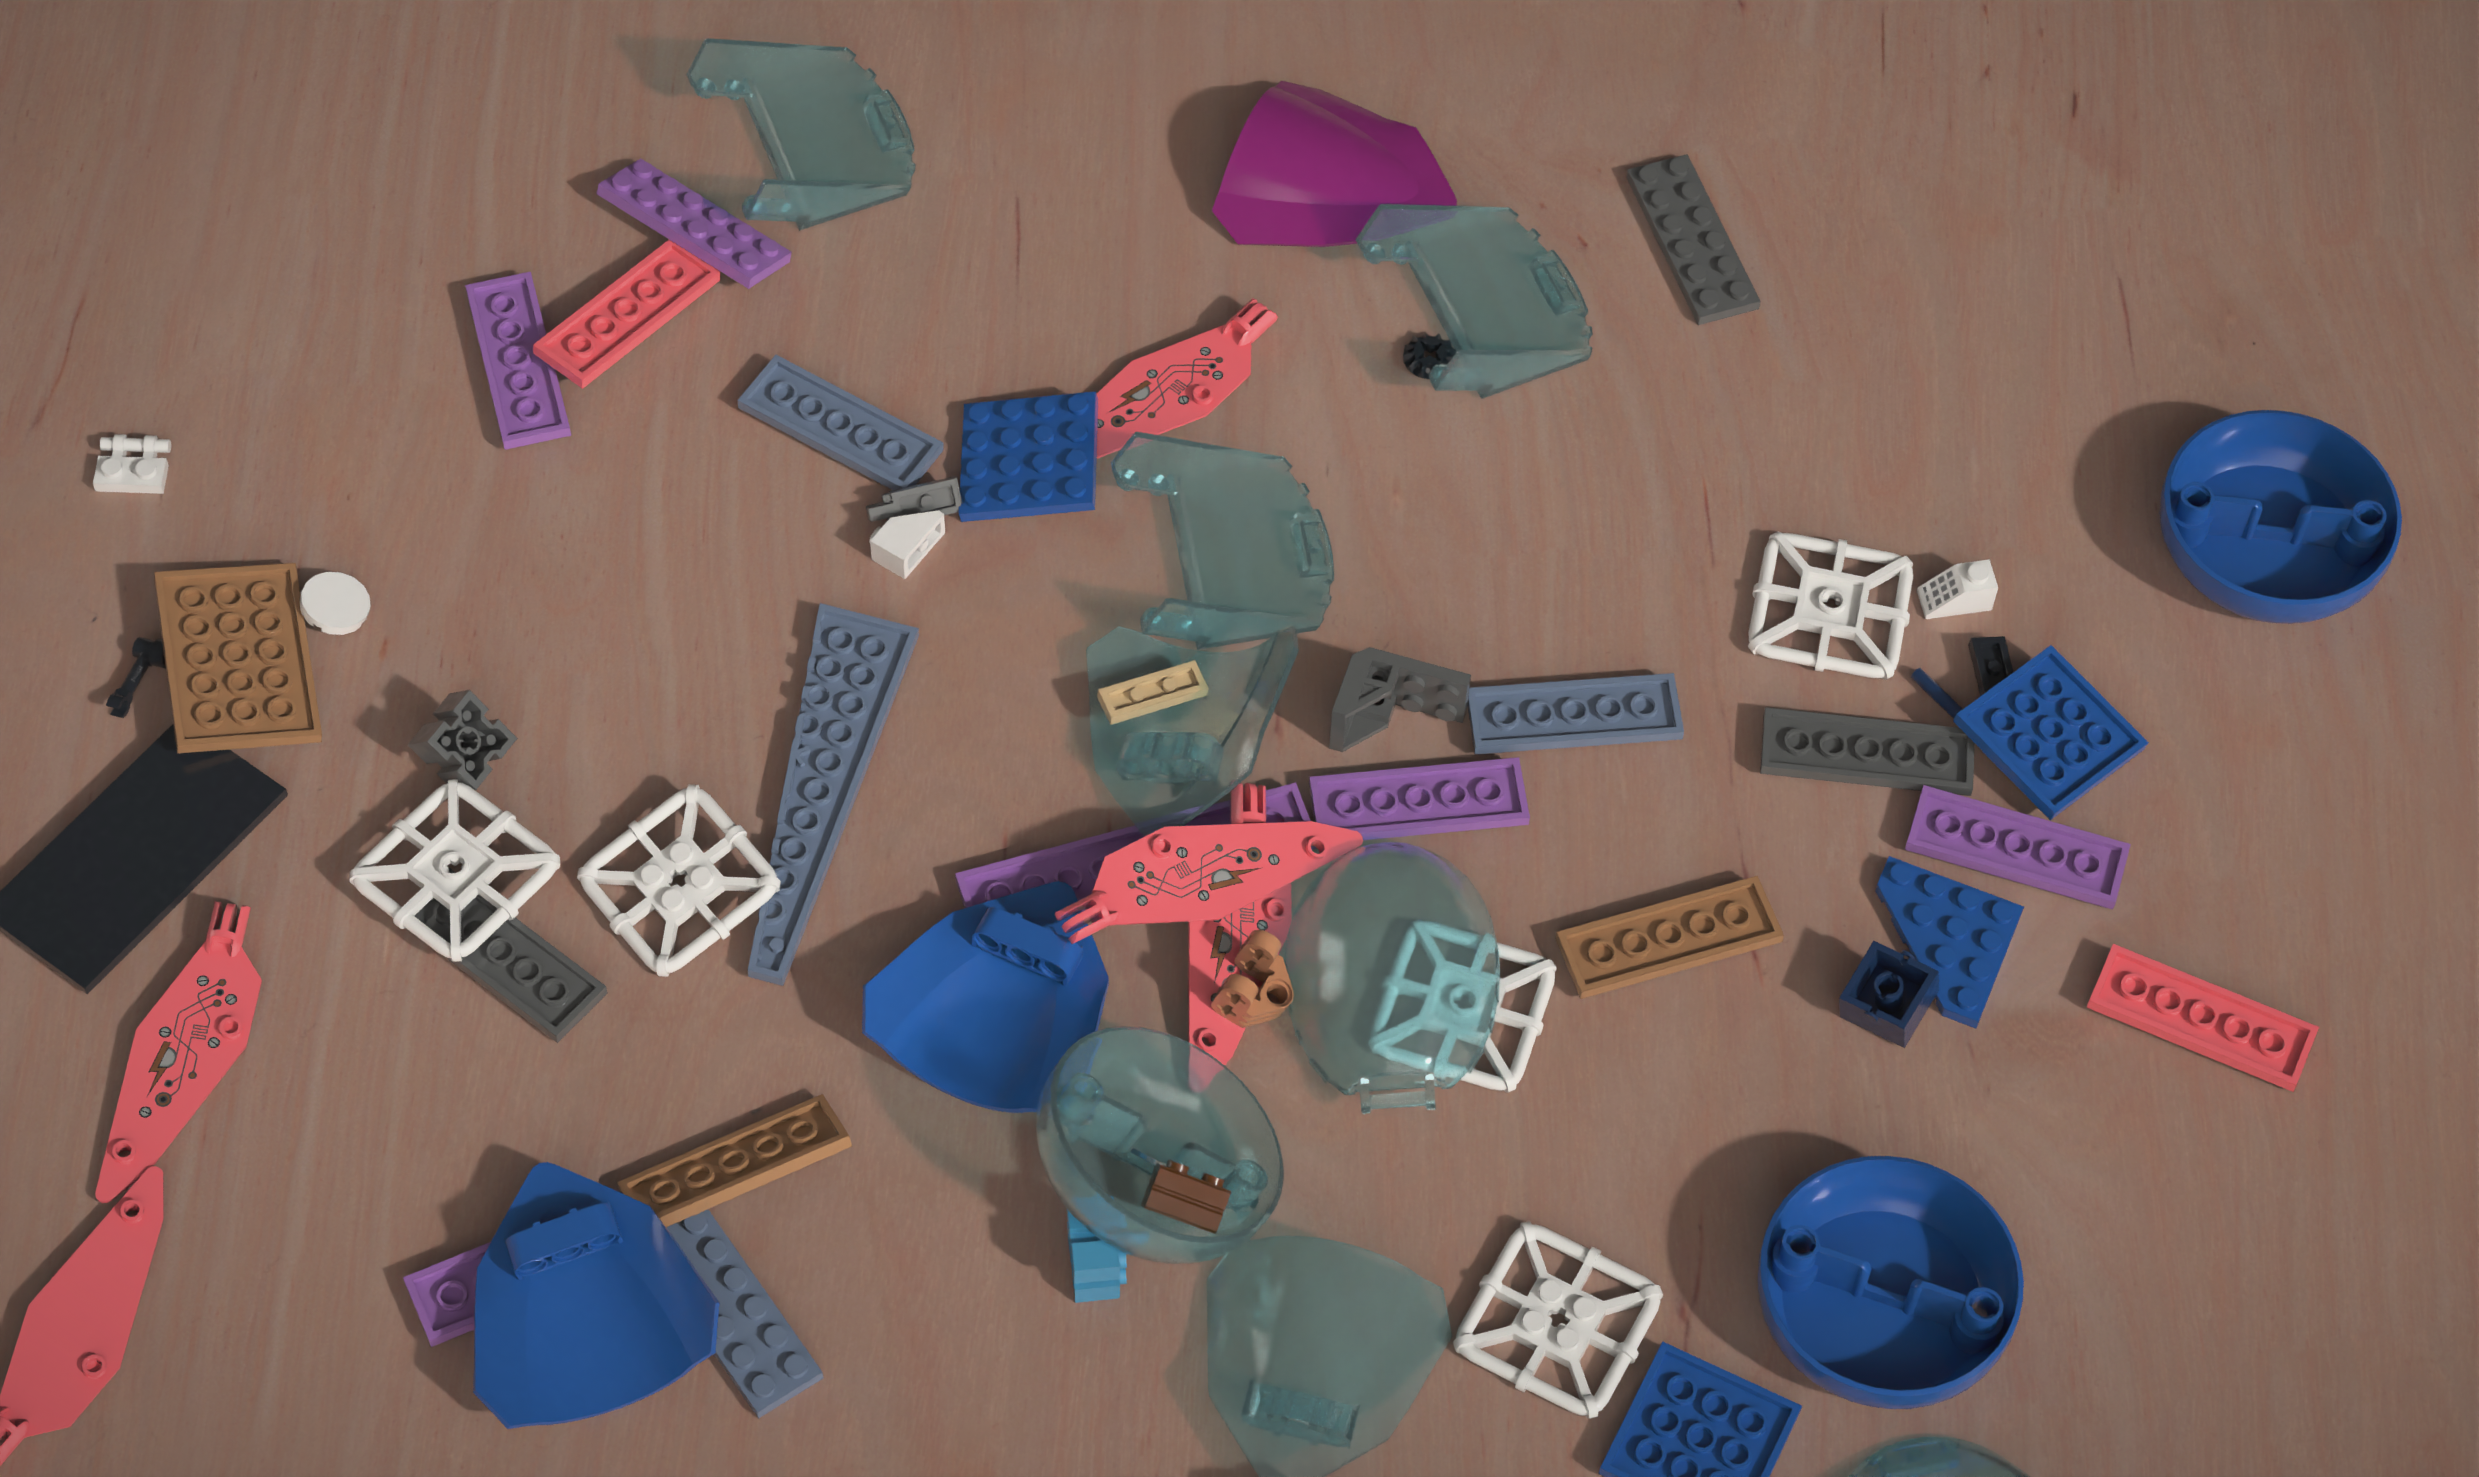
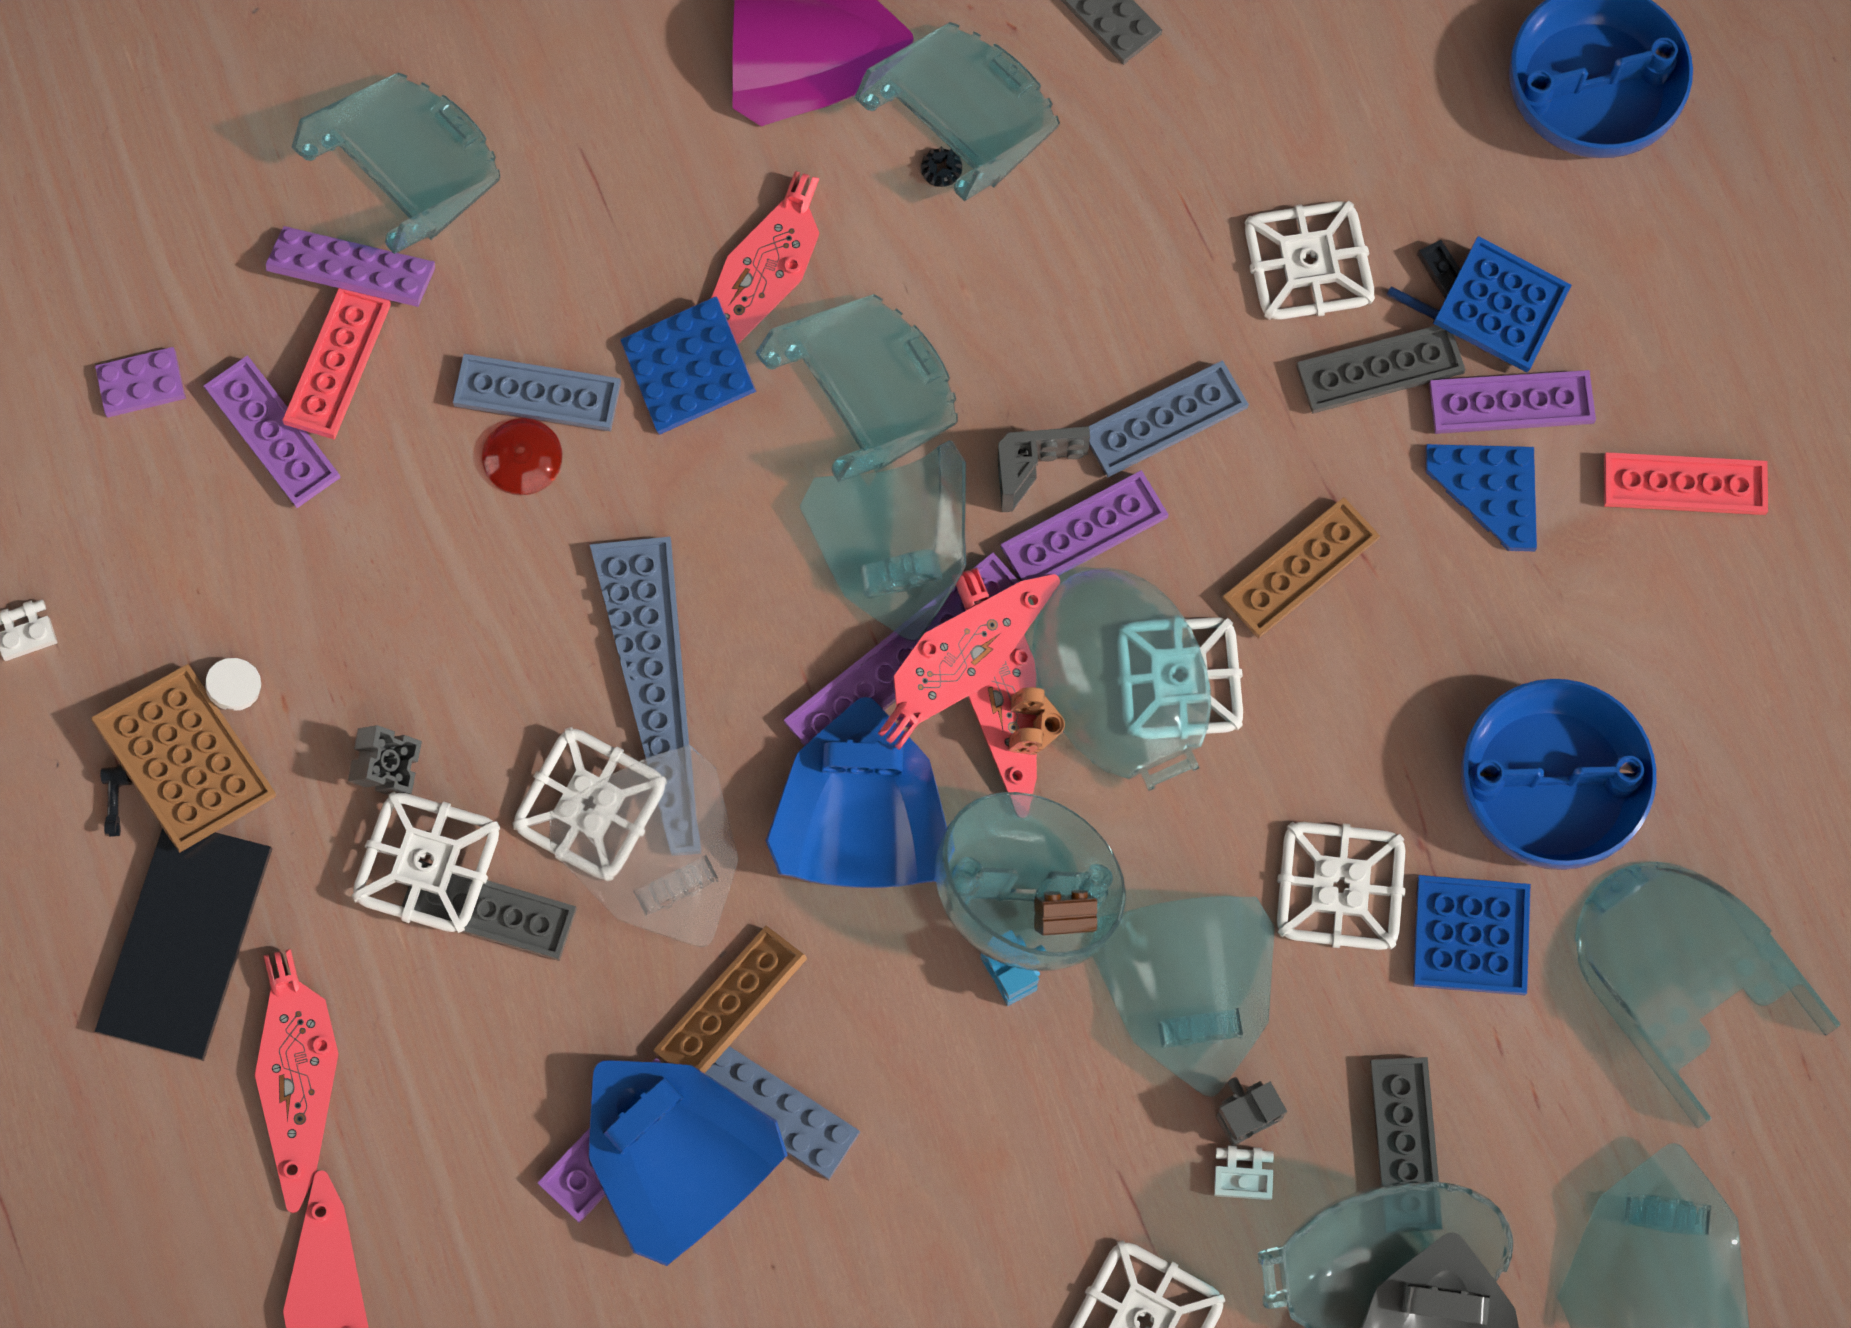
camera: 20 degrees left, 15 degrees up
(398, 260) = (140, 382): none -> medium lavender plate
(731, 946) = (653, 844): none -> clear windscreen
(794, 500) = (525, 471): none -> clear red dish
(906, 541) = (628, 469): white slope -> none
(920, 498) = (622, 434): dark grey hinge -> none
(1152, 692) = (863, 523): tan plate -> none
(1889, 993) = (1470, 553): dark blue brick -> none
(1959, 590) = (1395, 214): white slope -> none

